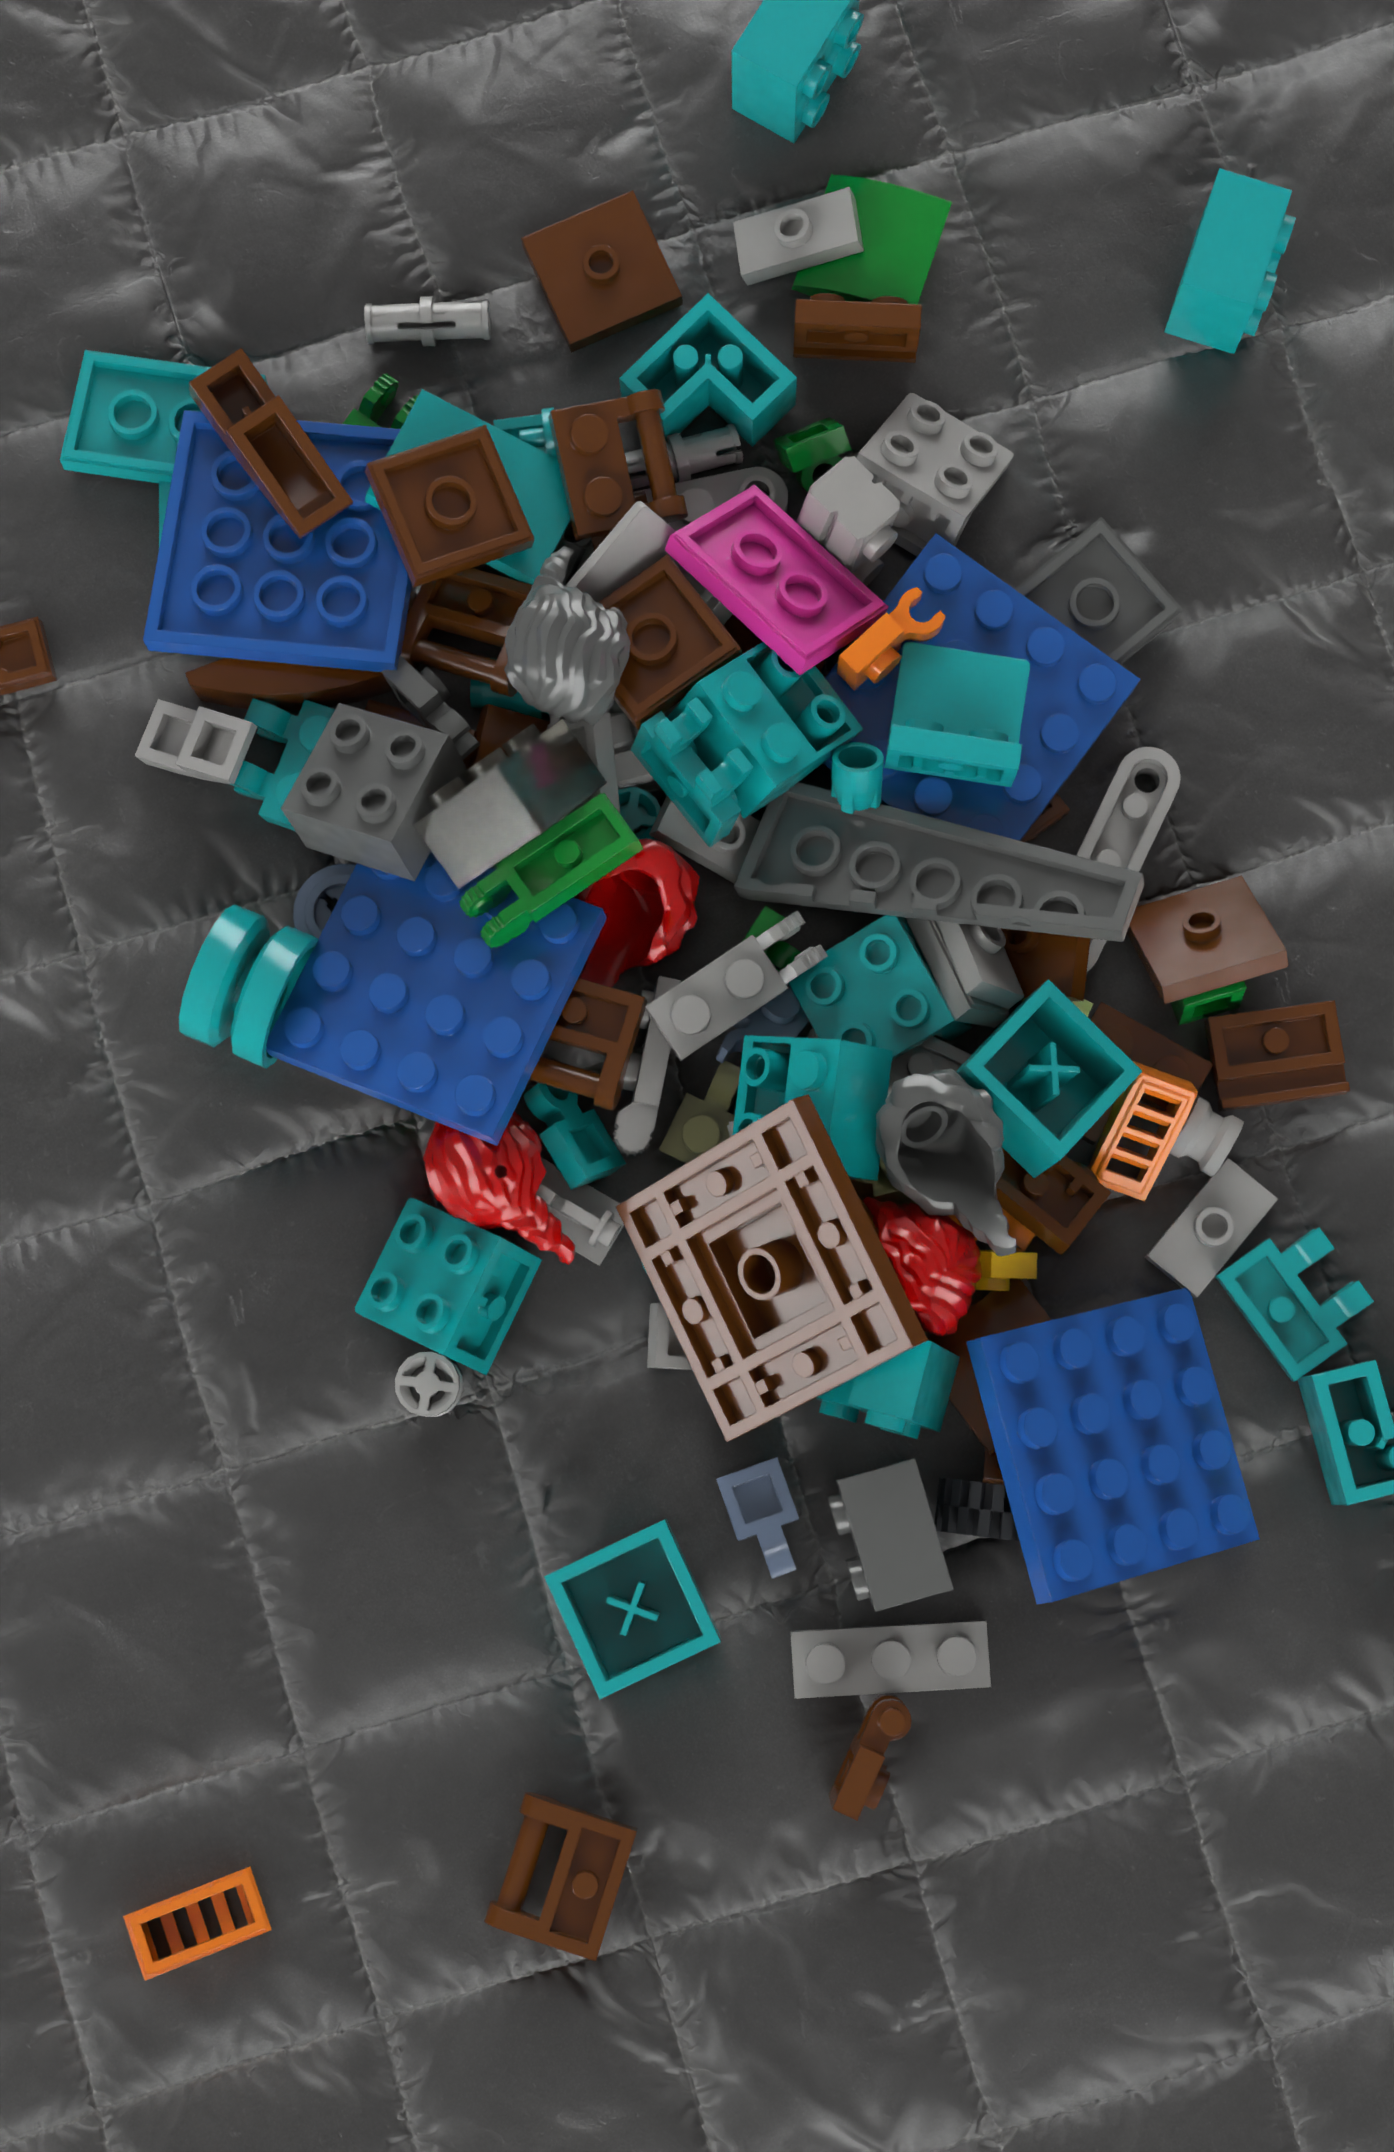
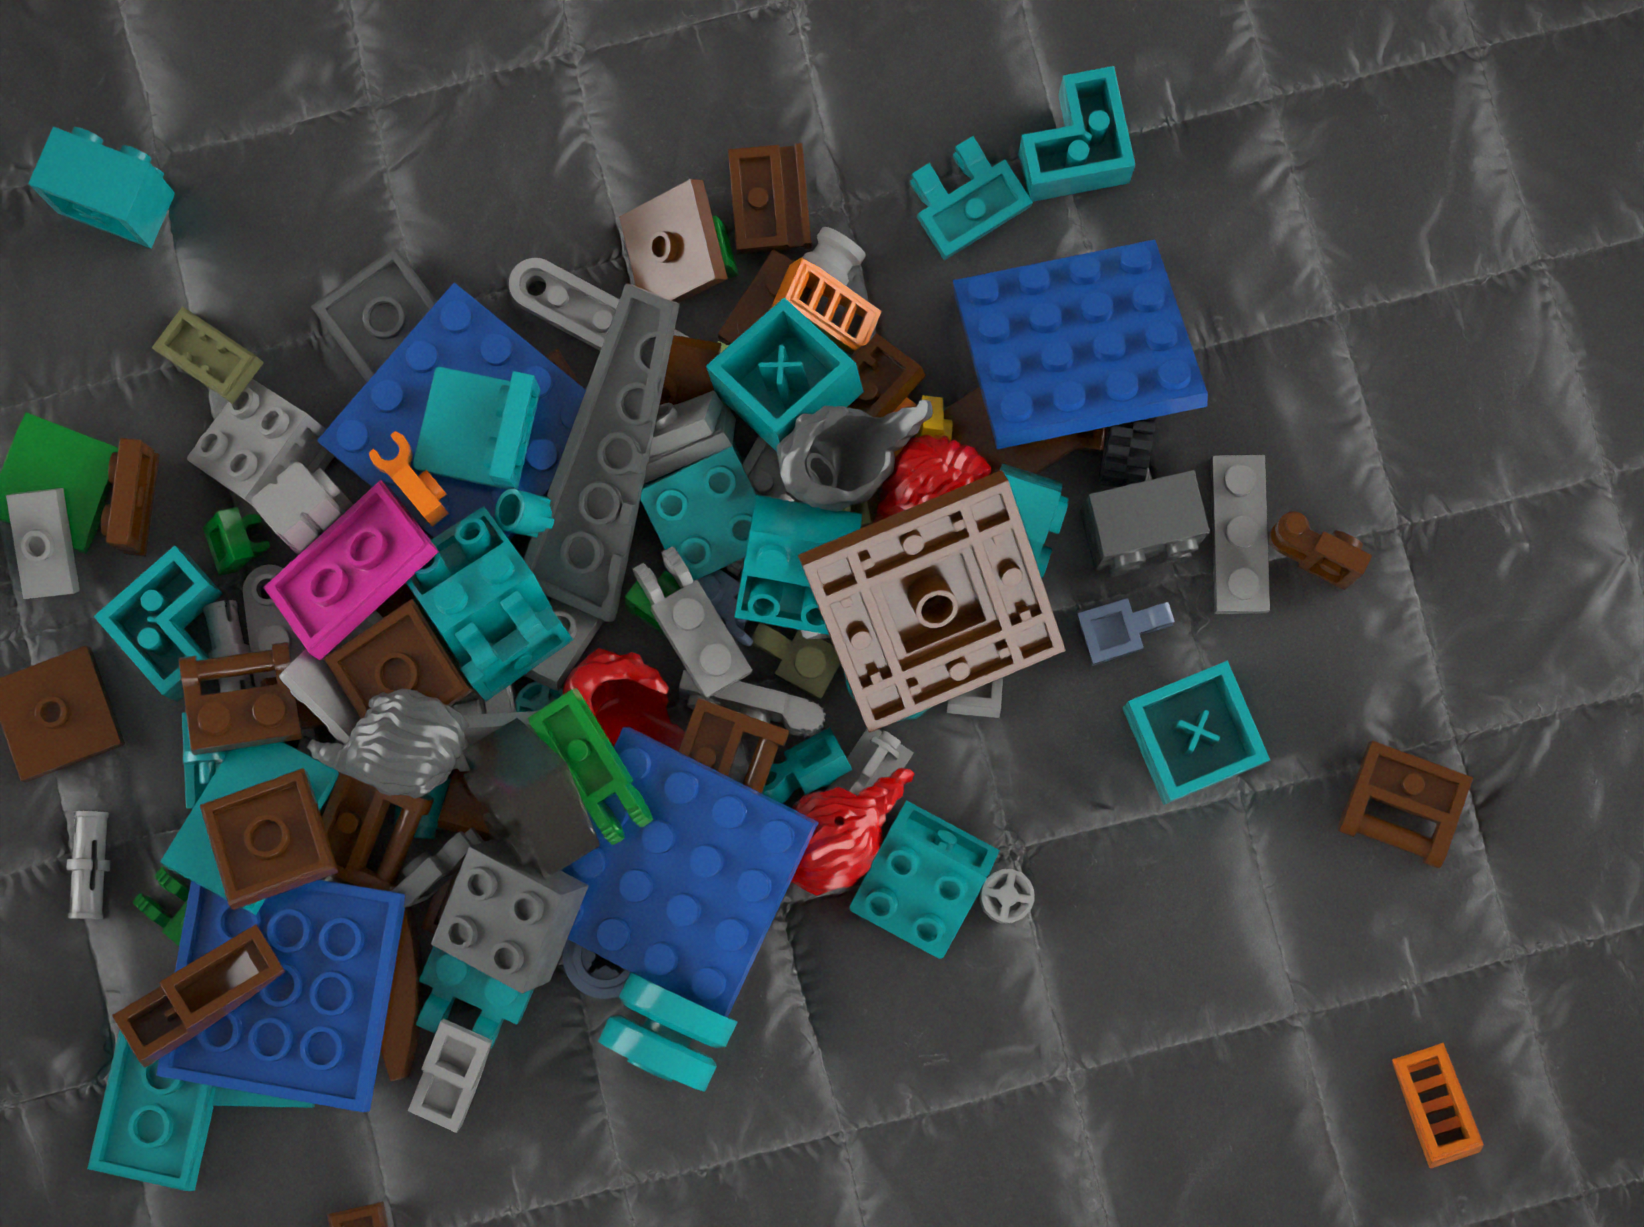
camera: 90 degrees left, 0 degrees up
(1035, 404) = (207, 355): none -> olive plate
(1211, 1228) = (906, 260): light grey plate -> none

